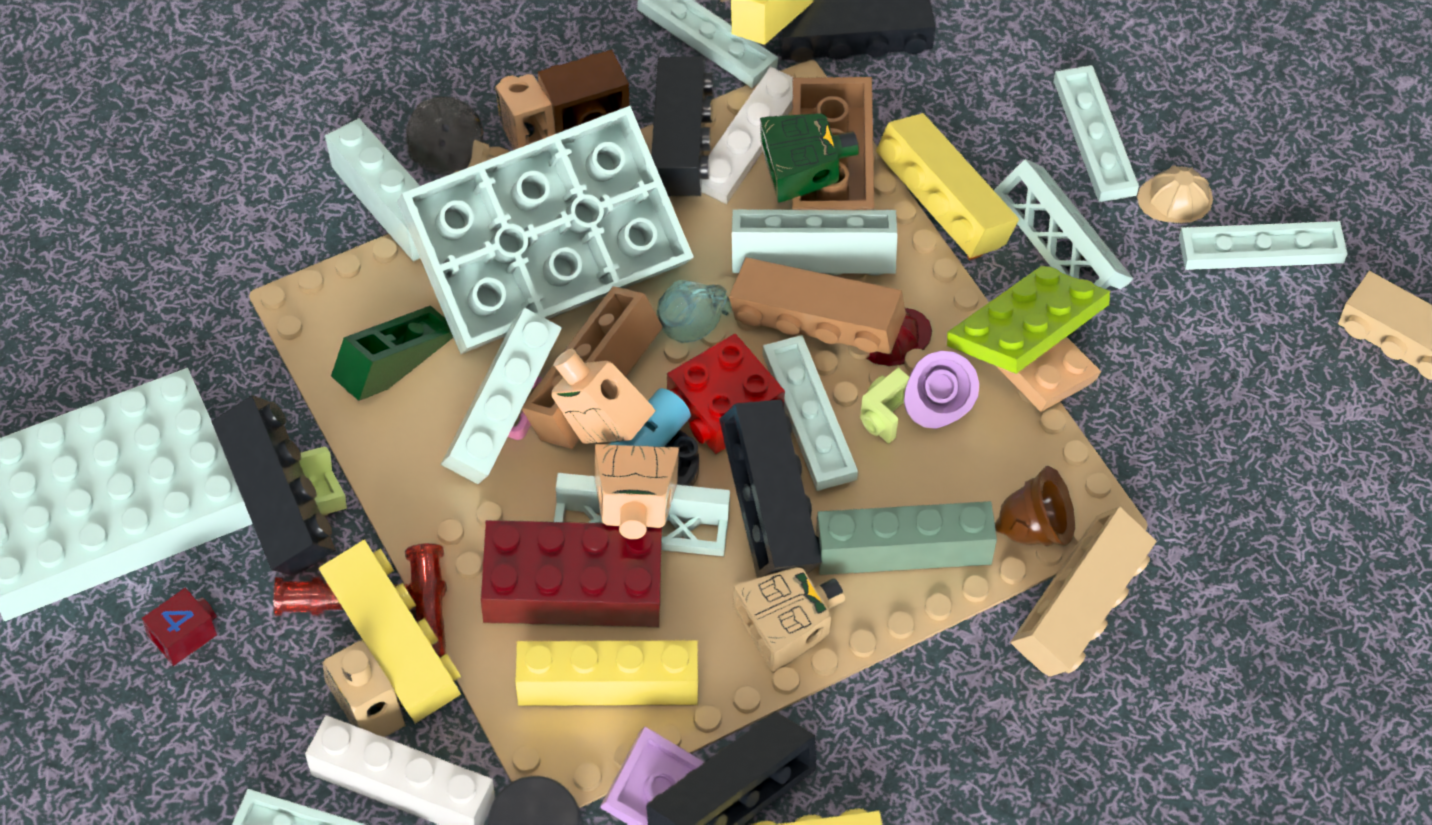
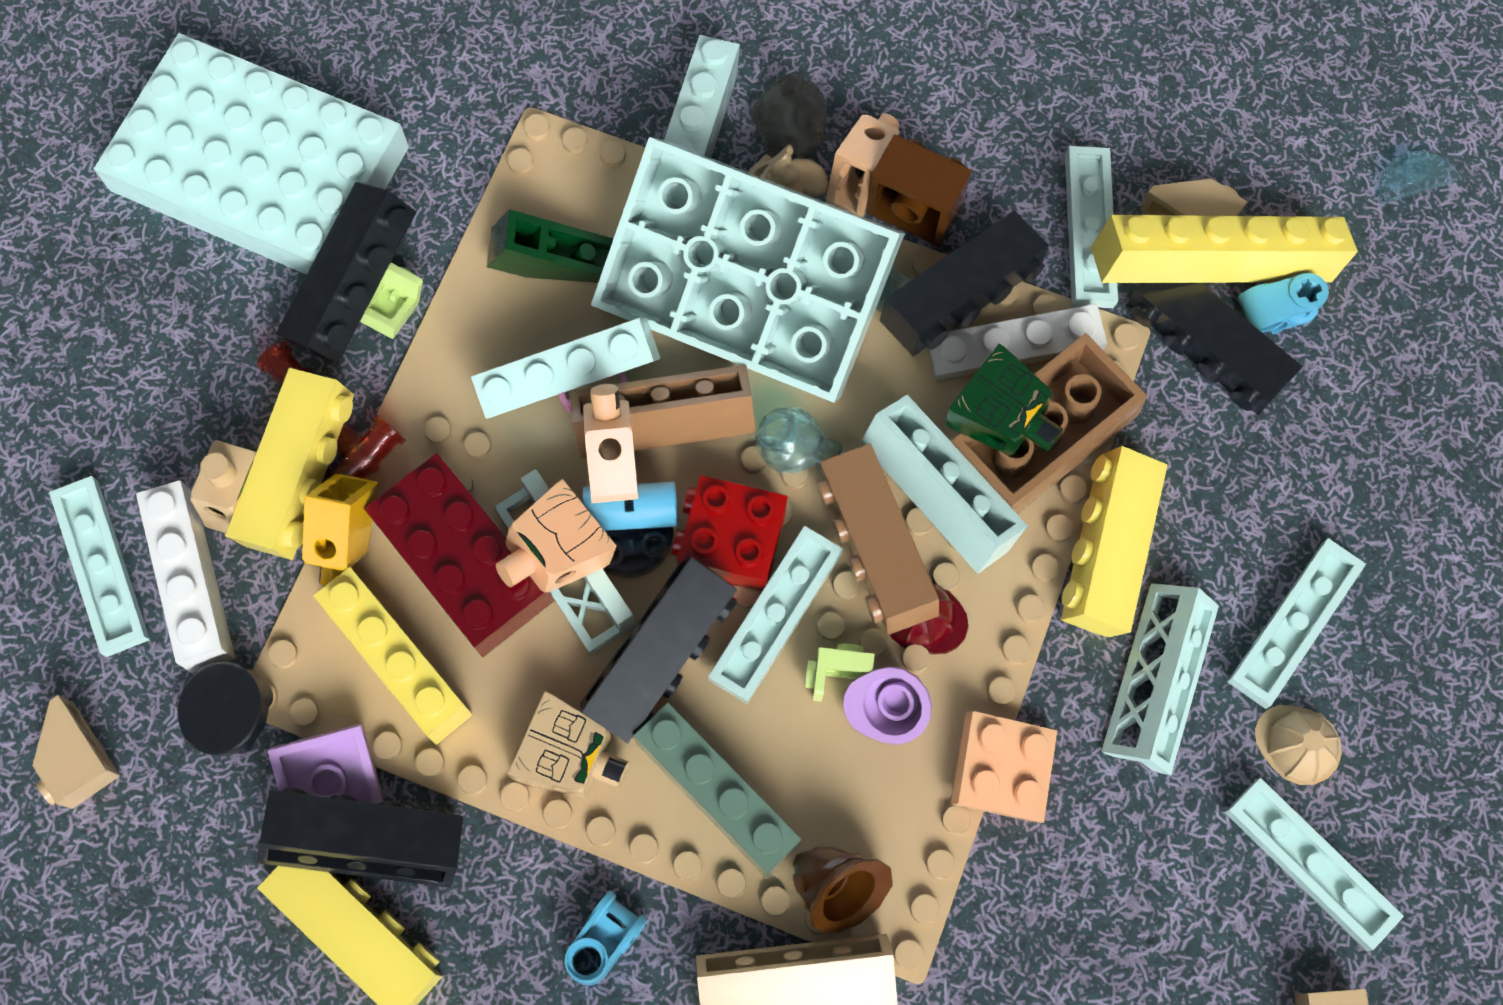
camera: 50 degrees right, 15 degrees up
(180, 625) = (190, 311): dark red brick -> none
(462, 622) = (337, 525): none -> yellow torso
(946, 690) = (604, 937): none -> medium azure piece
(1028, 319) = (1028, 723): lime plate -> none

